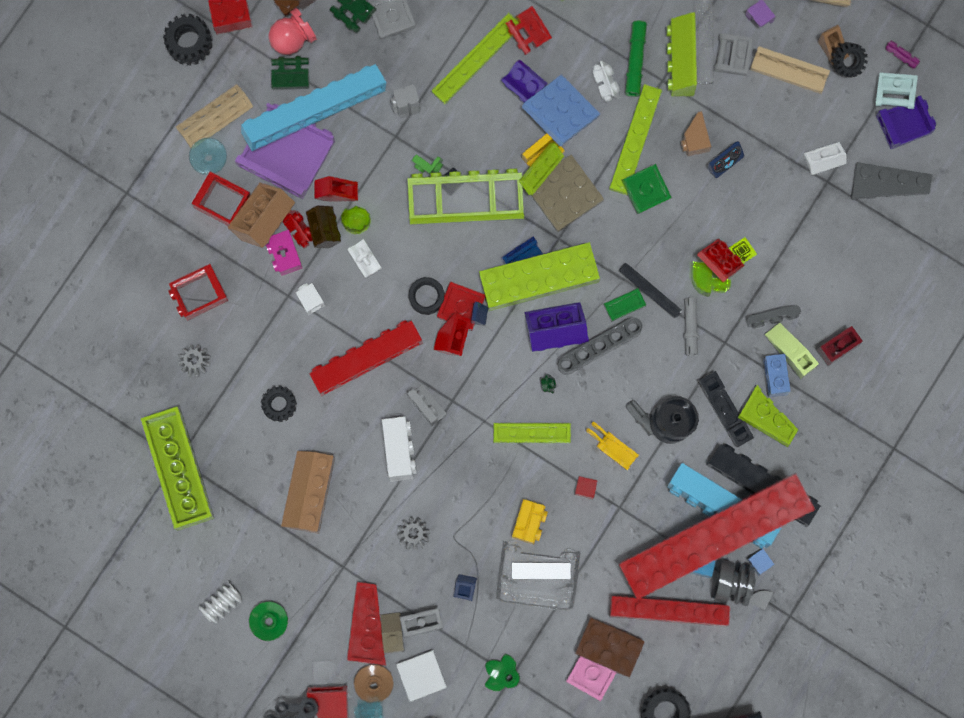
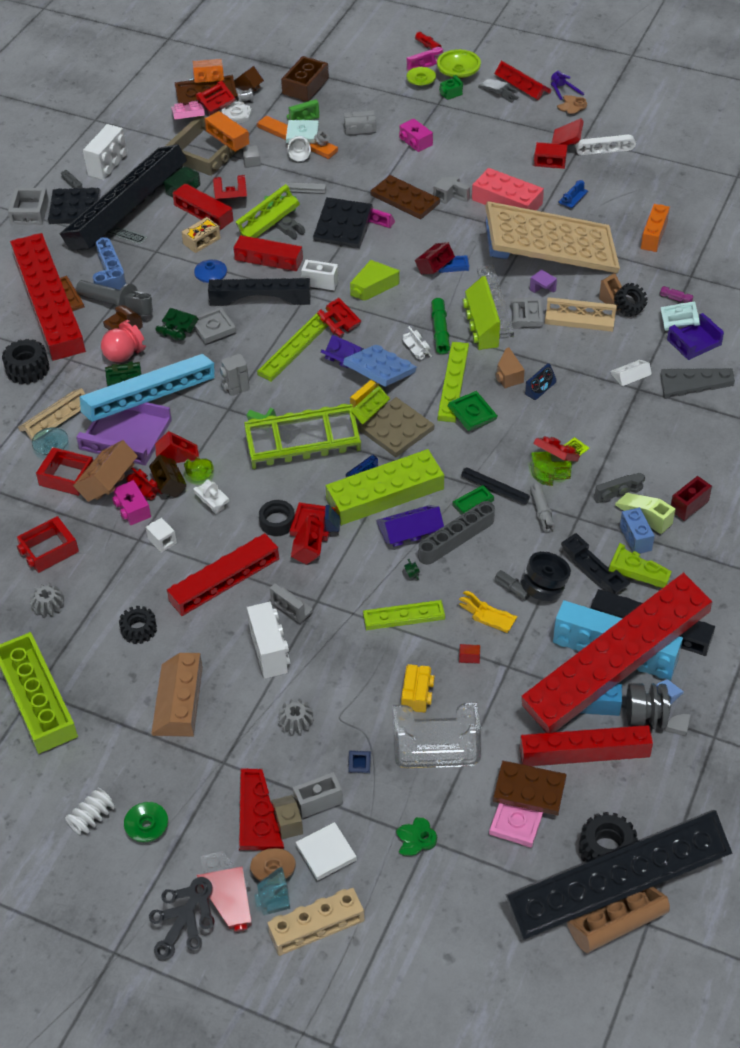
camera: 10 degrees left, 30 degrees down
(541, 570) = (438, 730): white sticker -> none

